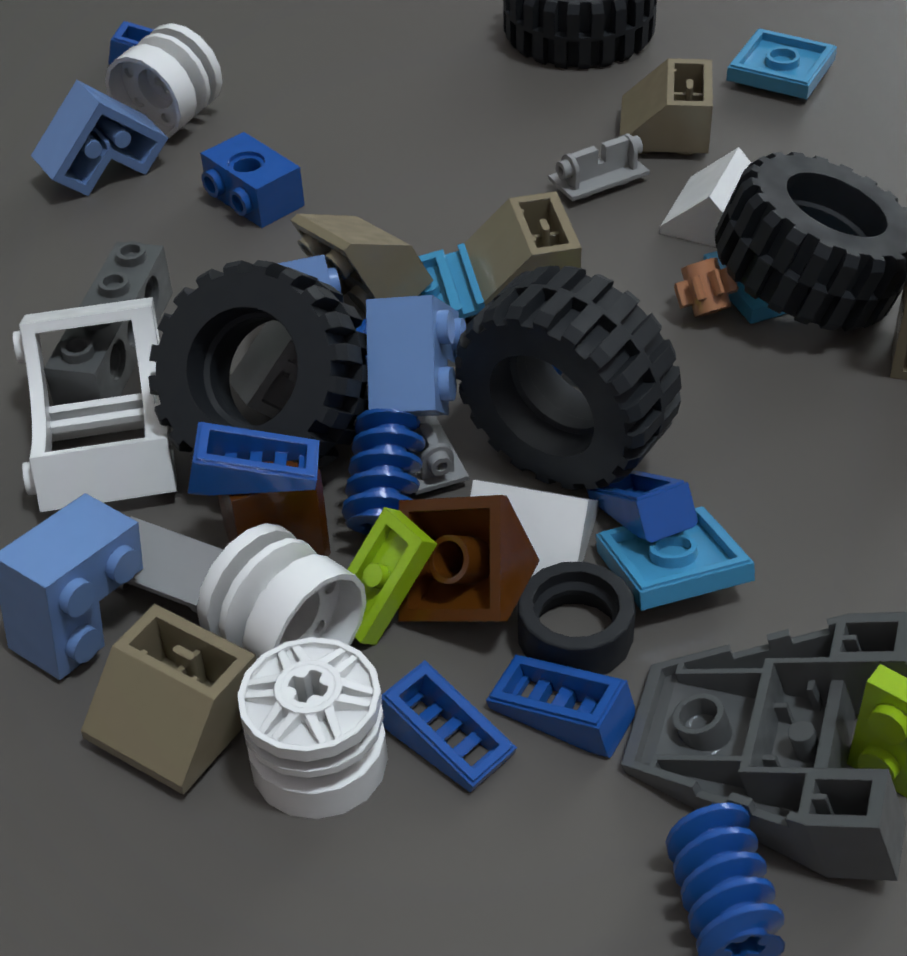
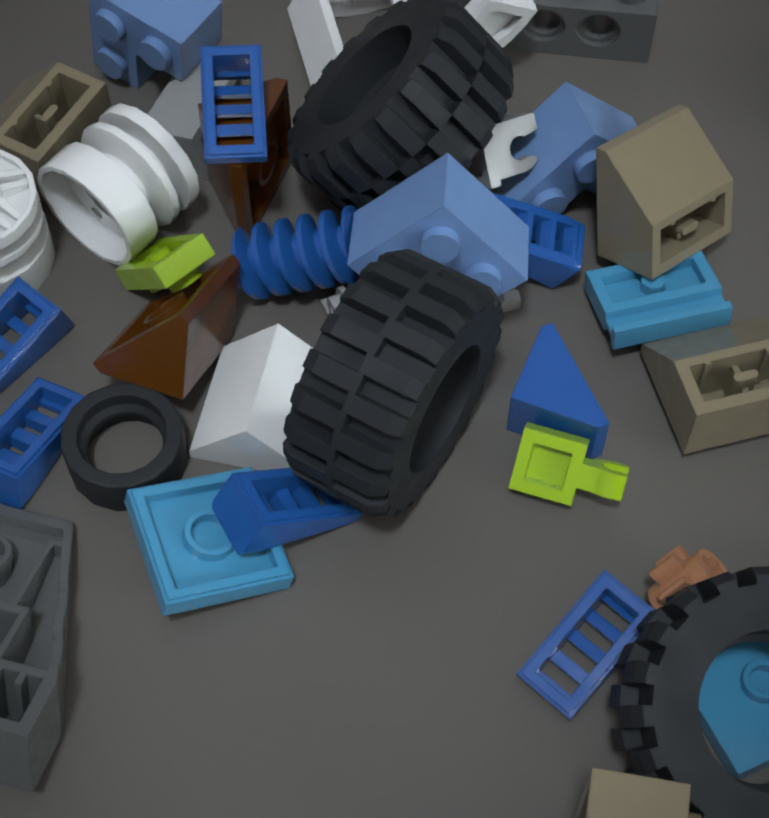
camera: 85 degrees right, 15 degrees up
(729, 329) = (619, 599): none -> blue slope

